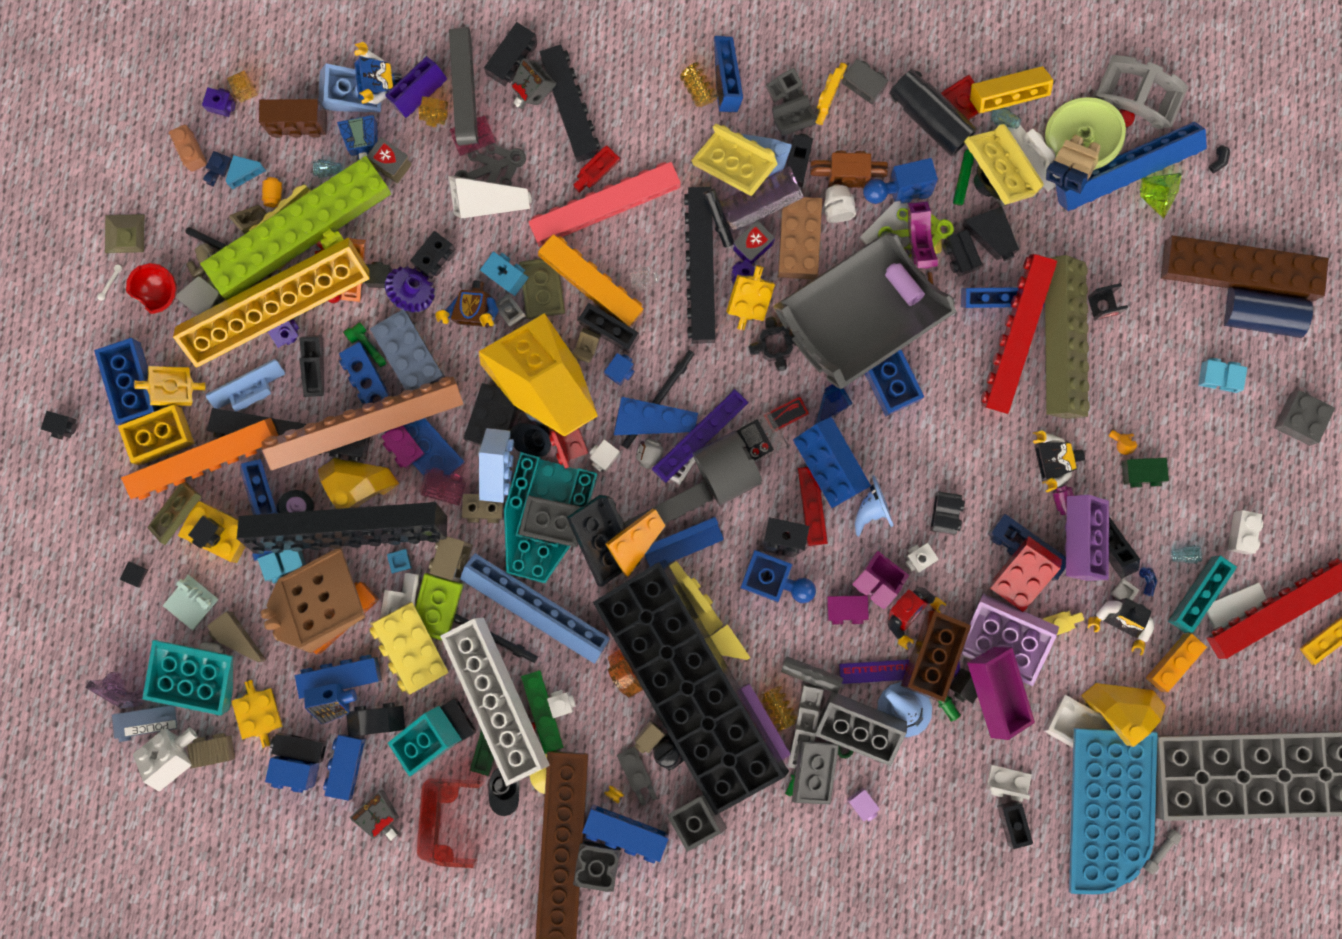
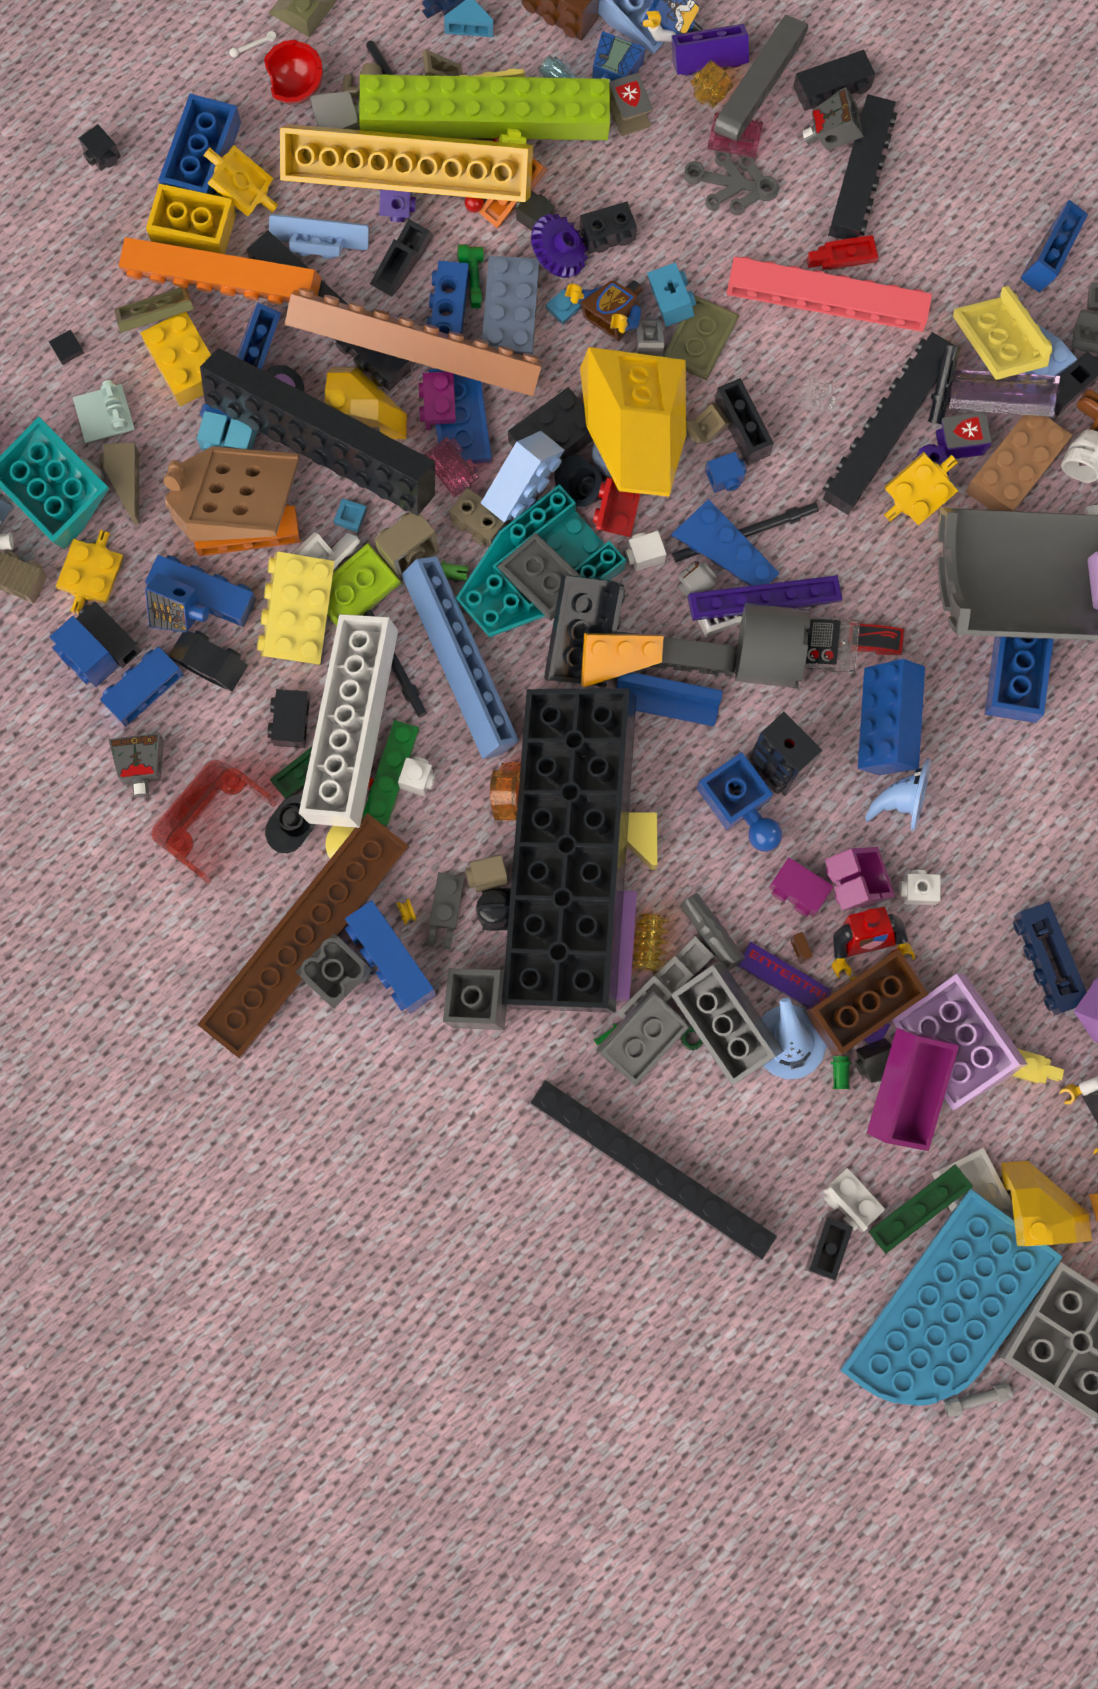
camera: 30 degrees right, 5 degrees down
(206, 533) = (172, 345): black brick -> none
(271, 192) = (484, 58): light orange brick -> none
(424, 741) = (244, 712): teal brick -> none
(439, 329) = (562, 307): none -> dark azure plate
(481, 198) = (703, 201): white slope -> none
(489, 553) = (451, 570): none -> bright green pin
(590, 281) = (757, 359): light orange brick -> none
(696, 86) = (1015, 237): clear yellow piece -> none
(700, 602) = (642, 768): light yellow bracket -> none
(771, 329) = (920, 540): black piece -> none
(812, 507) = (835, 757): red tile -> none
(832, 403) = (939, 658): clear blue slope -> none
(863, 805) = (672, 1111): lavender brick -> none
(872, 646) = (801, 947): none -> reddish brown tile
(876, 850) = (653, 1170): none -> black brick
(946, 513) = (983, 860): black brick -> none
(1026, 574) = (1029, 980): brick -> none
(1053, 761) = (920, 1208): none -> dark green plate

